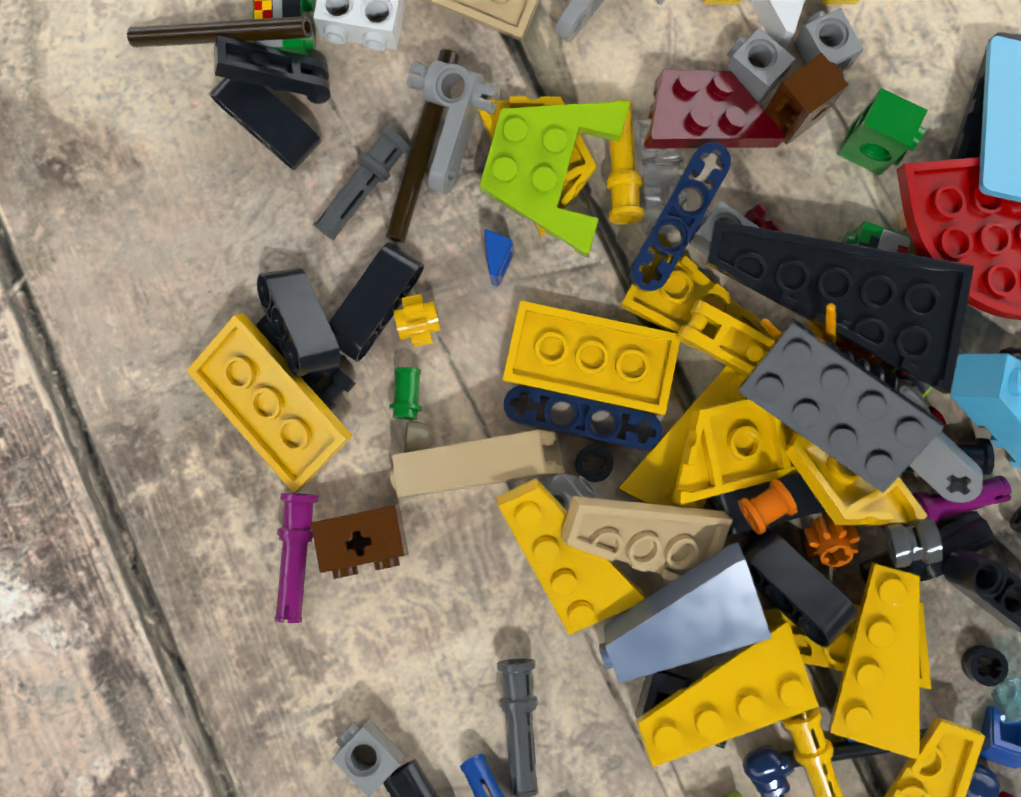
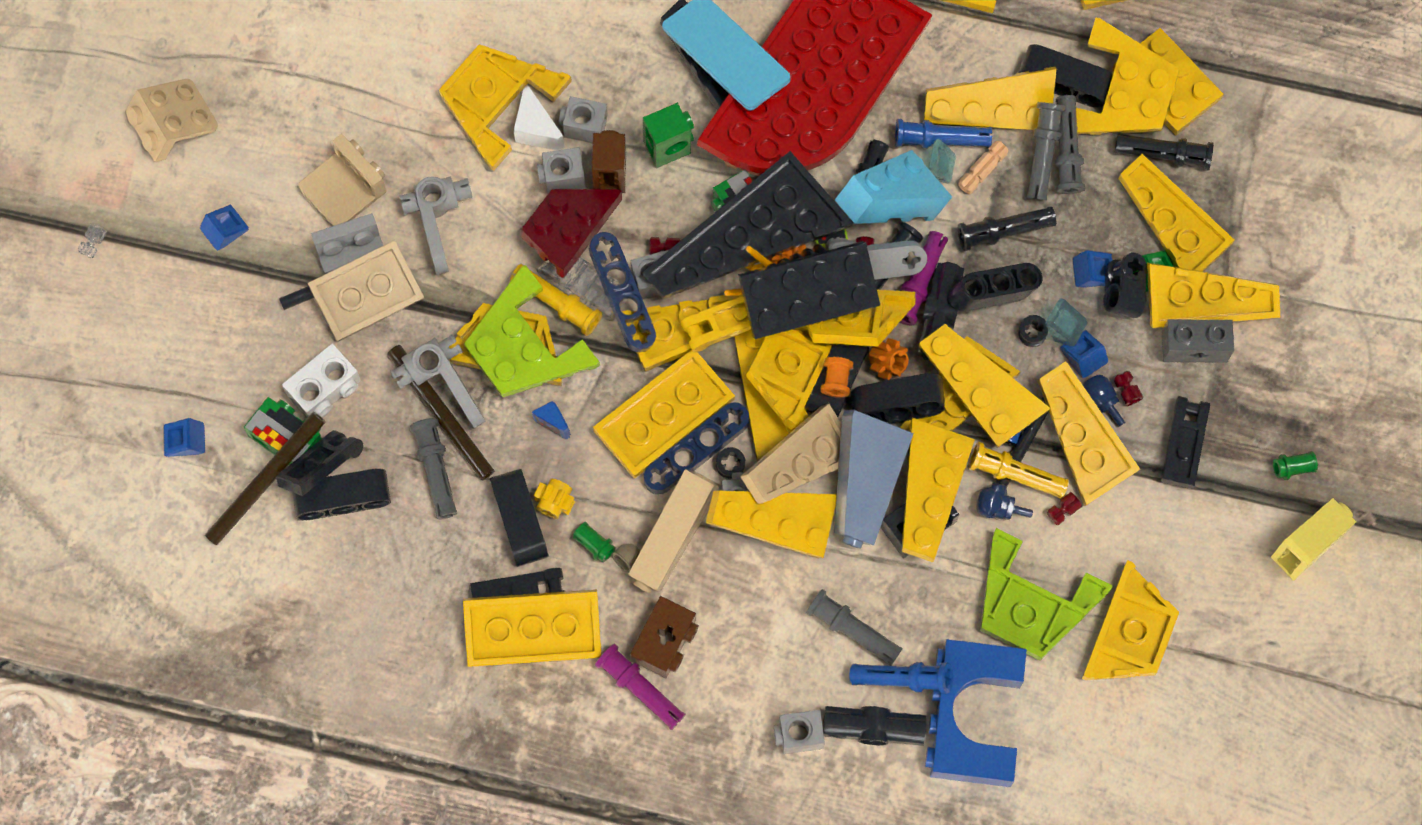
camera: 55 degrees left, 10 degrees down
(298, 322) = (496, 569): black beam -> none
(913, 543) = (923, 312): dark grey wheel -> none

